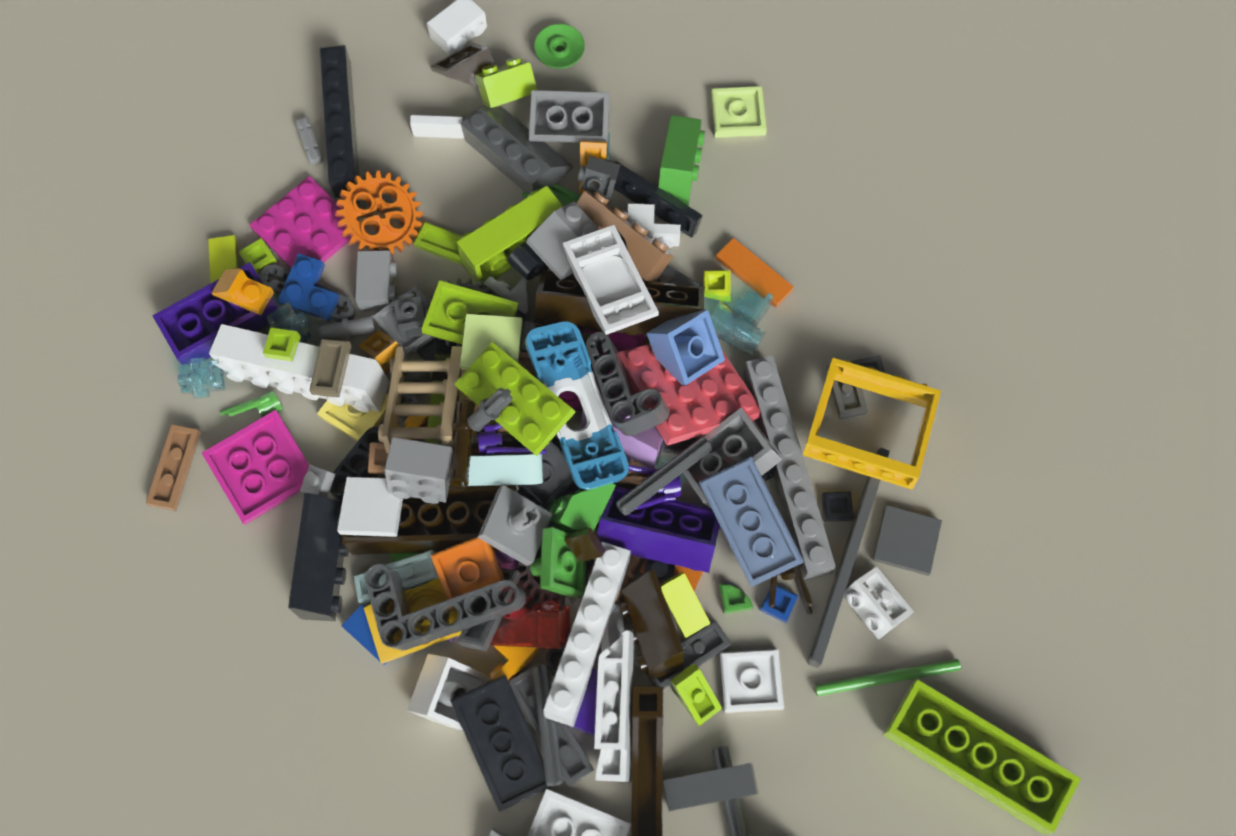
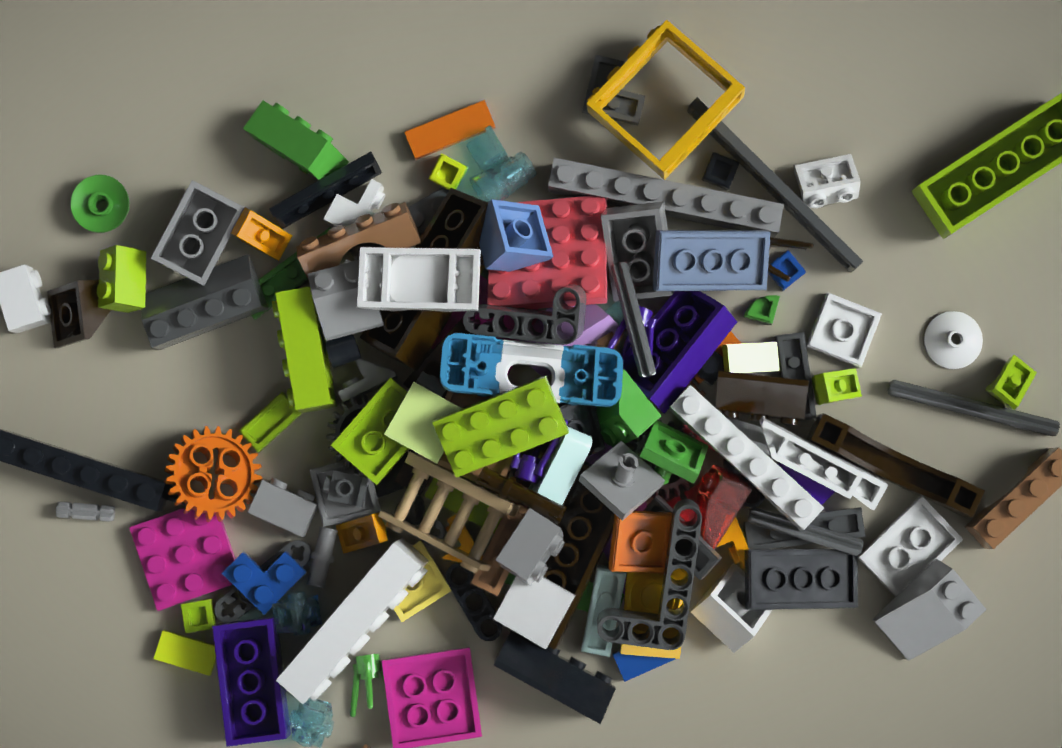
camera: 70 degrees left, 15 degrees up
(242, 291) = (244, 645): light orange slope -> none
(281, 344) = (334, 628): lime plate -> none
(317, 481) = (478, 649): light grey plate -> none
(330, 368) = (382, 590): dark tan tile -> none
(436, 126) = (135, 371): white tile -> none
(489, 409) = (507, 455): dark grey axle -> none
(584, 544) = (668, 424): dark brown tile -> none
(599, 176) = (281, 234): dark grey brick -> none
(710, 787) = (922, 411): dark grey tile -> none
(738, 111) = (263, 56): yellowish green tile -> none
(778, 792) = (939, 343): none -> white dish
(887, 677) = (895, 208): bright green piece -> none
(907, 540) = (781, 124): dark grey tile -> none

